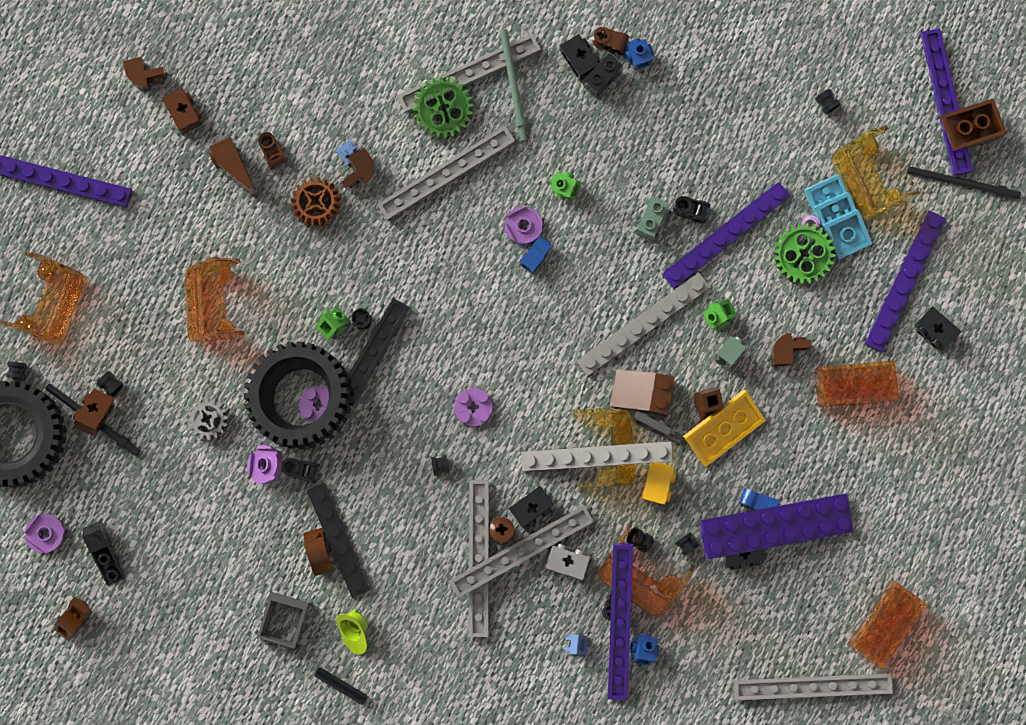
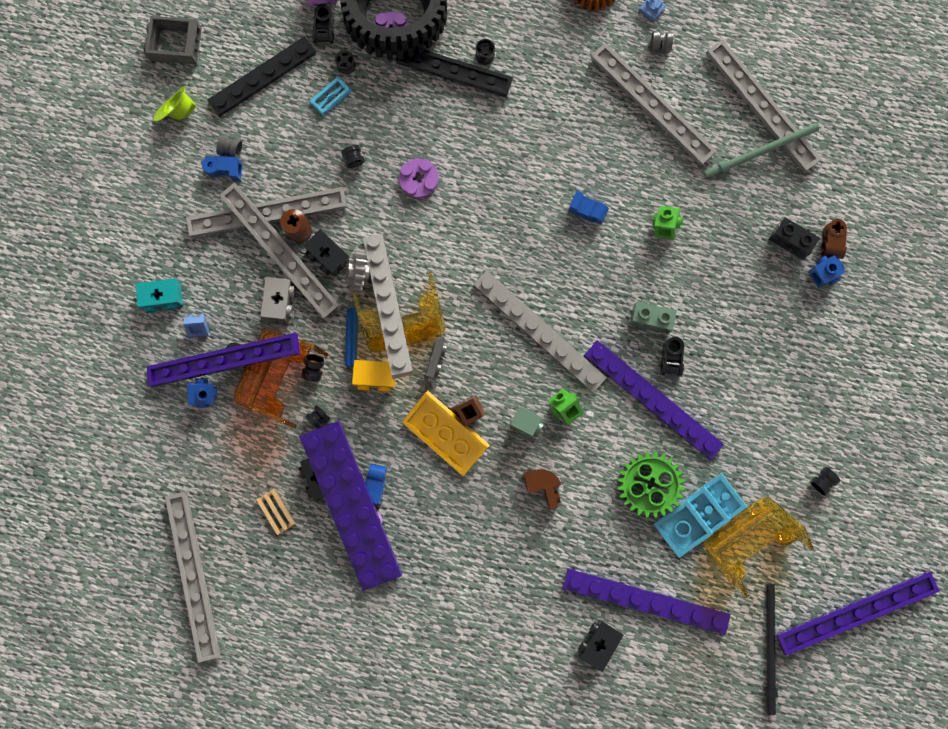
camera: 80 degrees right, 0 degrees up
(317, 552) = (242, 55): reddish brown brick -> none
(332, 323) = (474, 24): bright green brick -> none
(340, 452) = (345, 57): none -> black wheel
(341, 686) = (120, 108): black axle -> none
(363, 167) = (639, 21): reddish brown brick -> none
(381, 490) = (334, 102): none -> medium azure tile
(386, 151) = (661, 41): none -> dark grey wheel
(405, 583) = (228, 146): none -> dark grey wheel
(422, 597) = (221, 165): none -> blue leg
(458, 101) = (710, 70): bright green gear -> none
(521, 236) = (616, 179): medium lavender plate -> none
(536, 664) = (148, 291): none -> teal brick
(557, 480) = (357, 271): none -> light grey gear
(570, 52) = (814, 202): black brick -> none
(616, 499) = (351, 337): none -> blue axle
(642, 391) = (467, 343): slope -> none
(782, 593) = (267, 497): none -> tan tile
(811, 219) = (690, 487): lavender plate -> none
(856, 384) = (521, 566): clear orange brick -> none
(887, 624) = (268, 643): clear orange brick -> none
(973, 125) = (838, 647): reddish brown slope -> none

